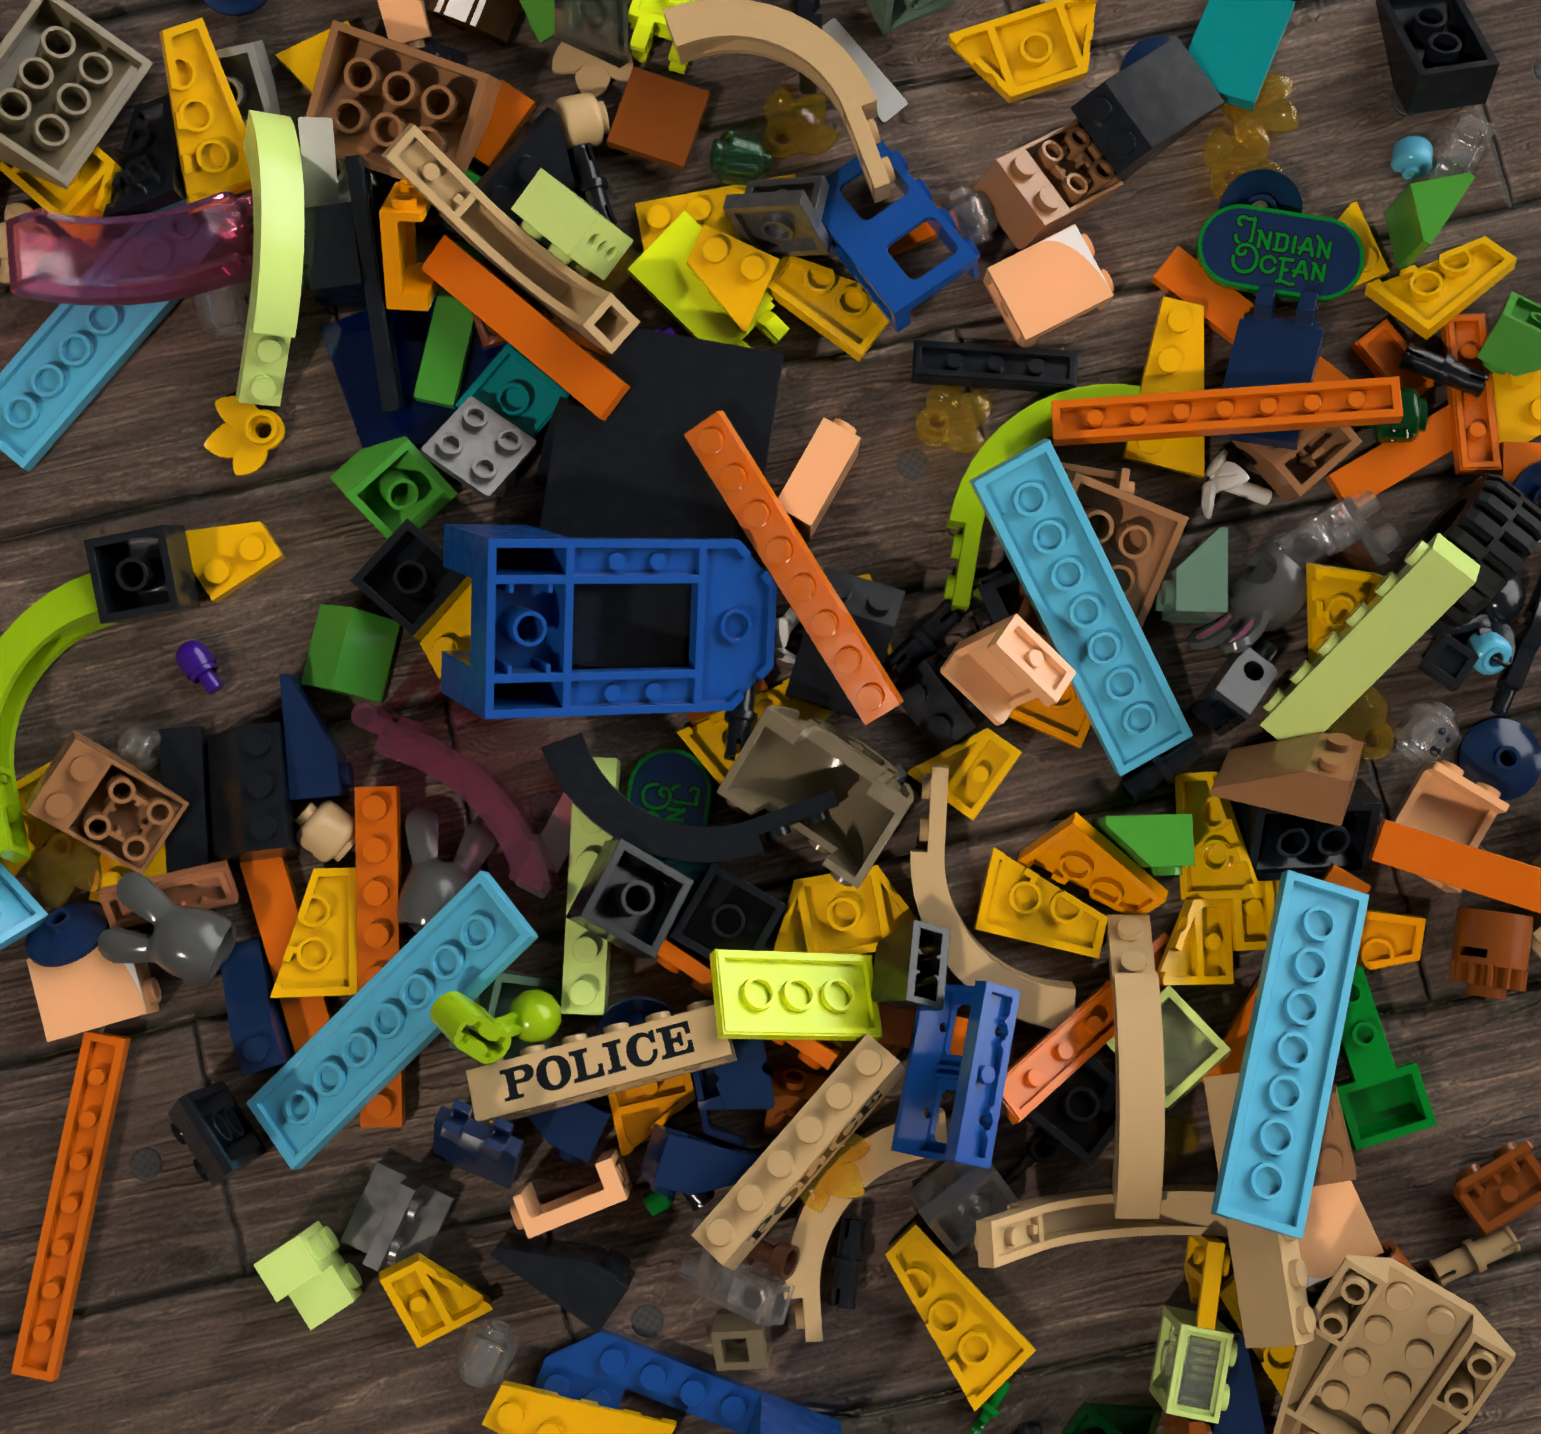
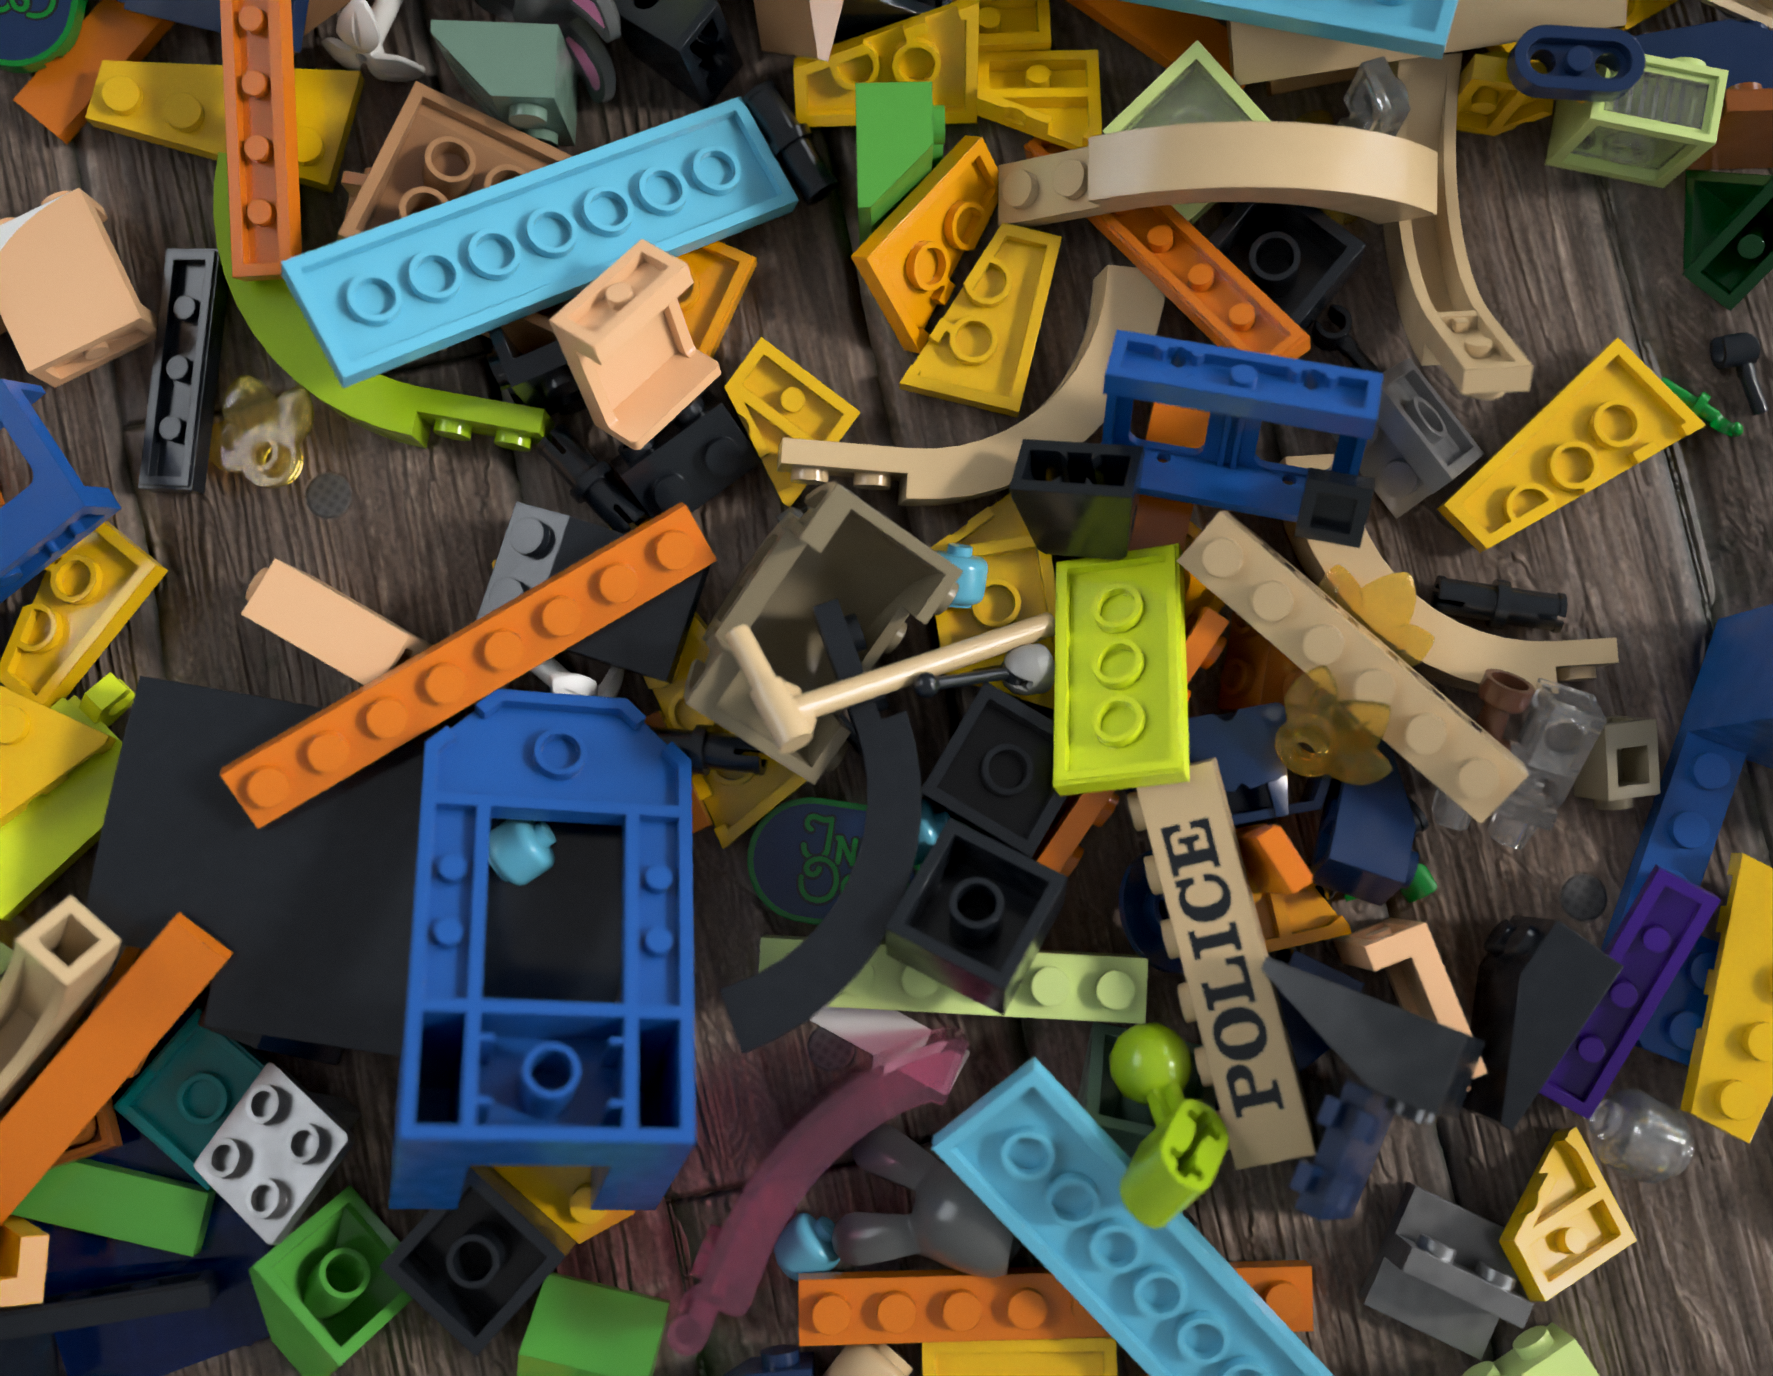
camera: 90 degrees left, 0 degrees up
(416, 791) = (806, 1246): none -> medium azure piece
(543, 1167) = (1393, 1051): none -> black slope
(601, 1353) = (1652, 949): none -> dark purple plate
(668, 1097) = (1273, 860): none -> orange tile
(672, 602) = (521, 850): none -> medium azure piece
(752, 1141) = (1336, 729): none -> clear yellow plate
(758, 776) = (793, 715): none -> tan bar
(794, 931) = (1024, 672): none -> hinge
(866, 894) = (974, 575): none -> medium azure piece
(904, 1139) = (1334, 507): none -> black tile
(1190, 1176) = (1376, 99): none -> clear plate
(1216, 1309) = (1571, 61): none -> dark blue plate

